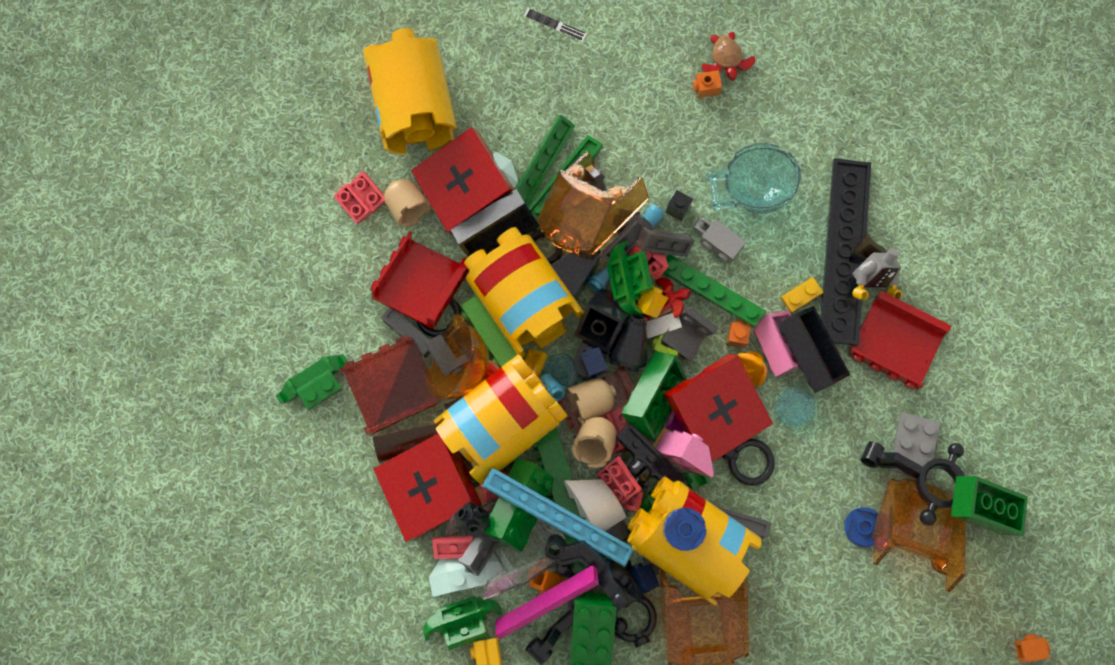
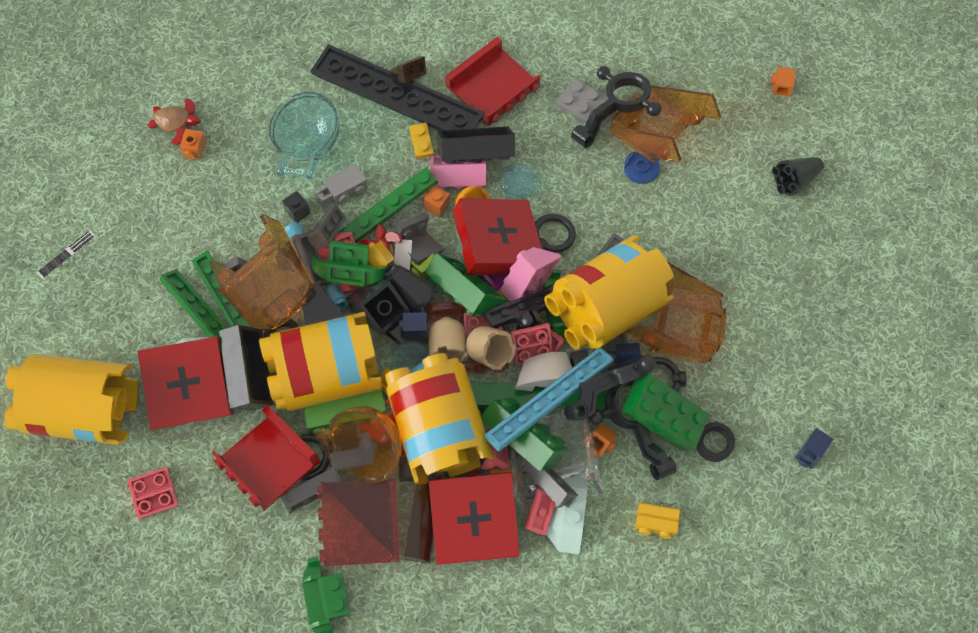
camera: 70 degrees left, 10 degrees down
(406, 202) = (179, 446): tan cylinder -> none
(461, 621) = (612, 533): green plate -> none
(472, 519) = (524, 476): black brick -> none
(547, 602) = (623, 441): dark pink tile -> none
(684, 529) = (604, 283): blue tile -> none
(878, 271) = (429, 70): torso -> none
(989, 506) = (659, 62): green brick -> none

